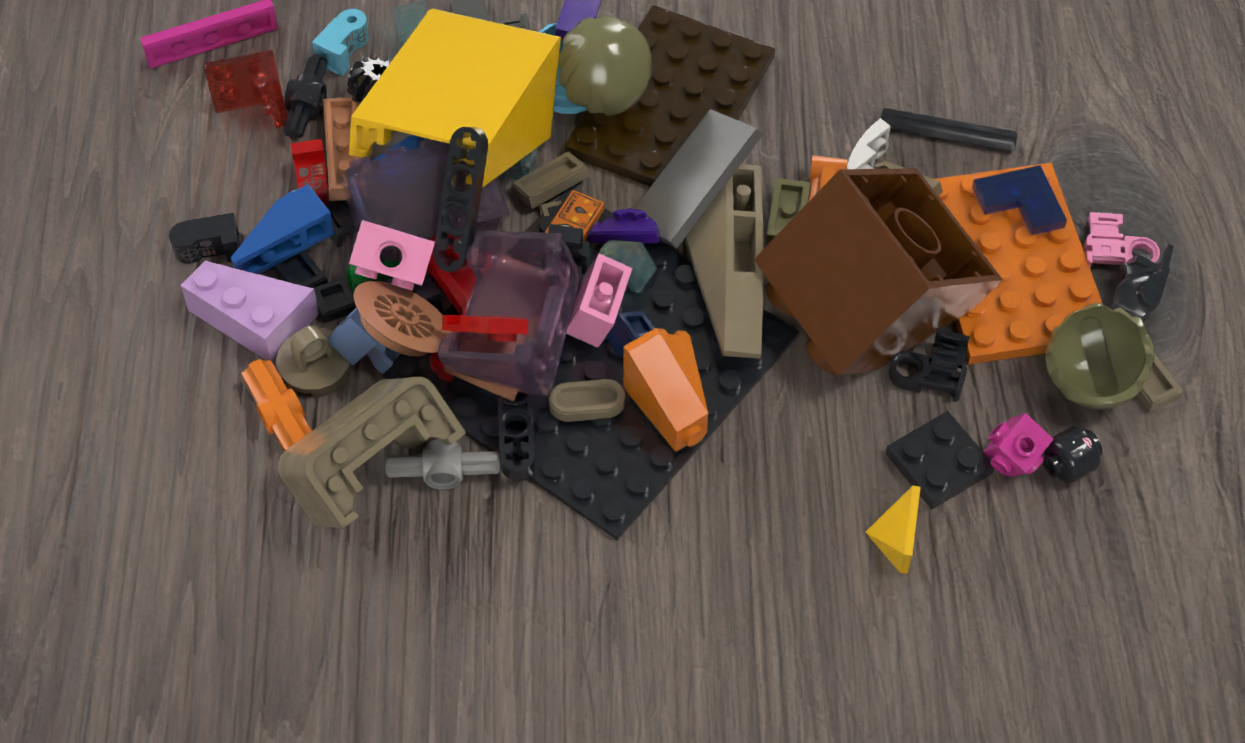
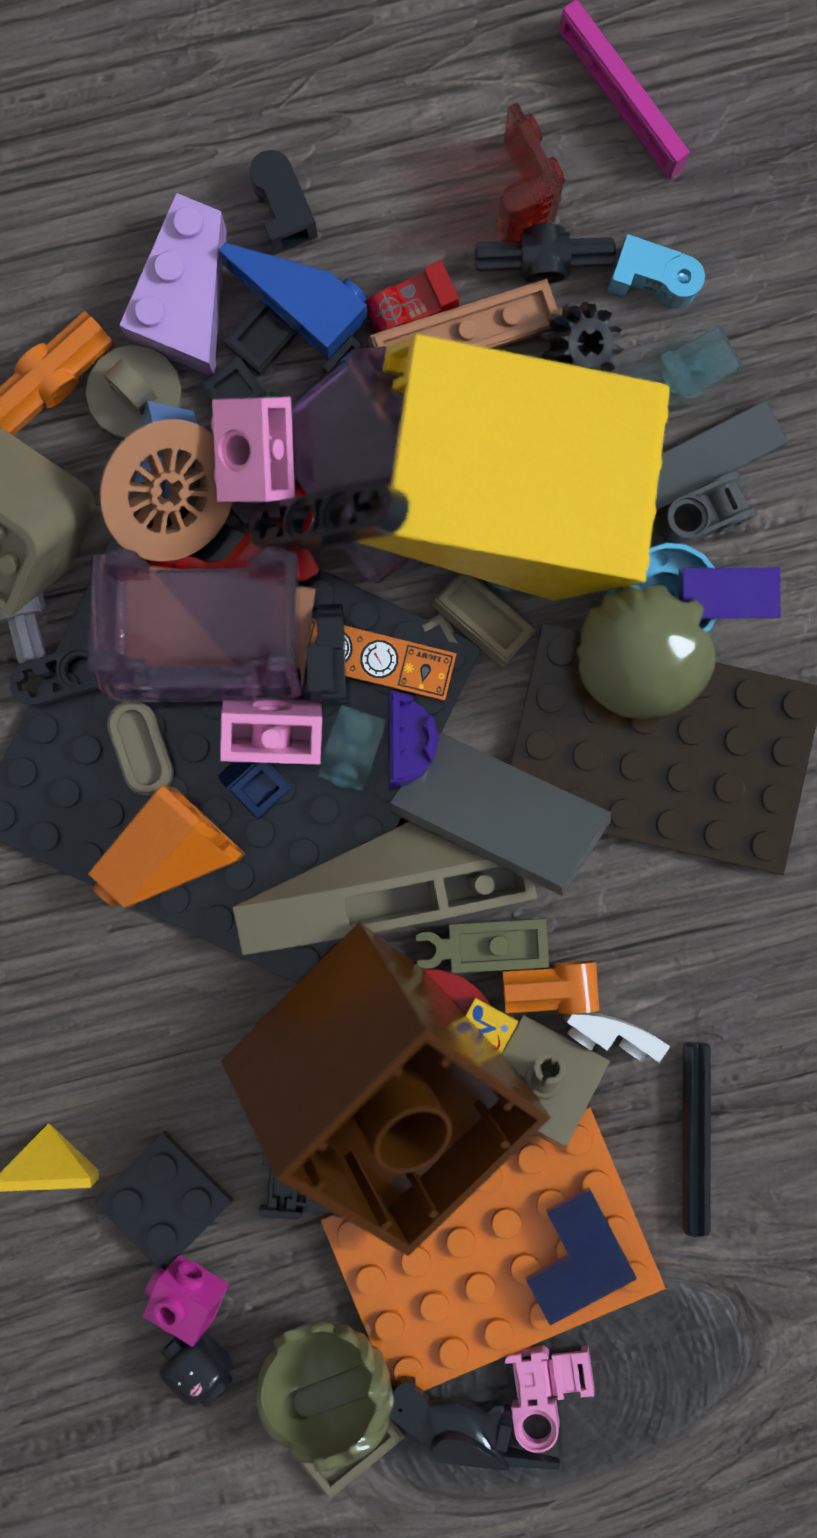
camera: 75 degrees right, 30 degrees up
(497, 327) = (157, 605): red wing -> none

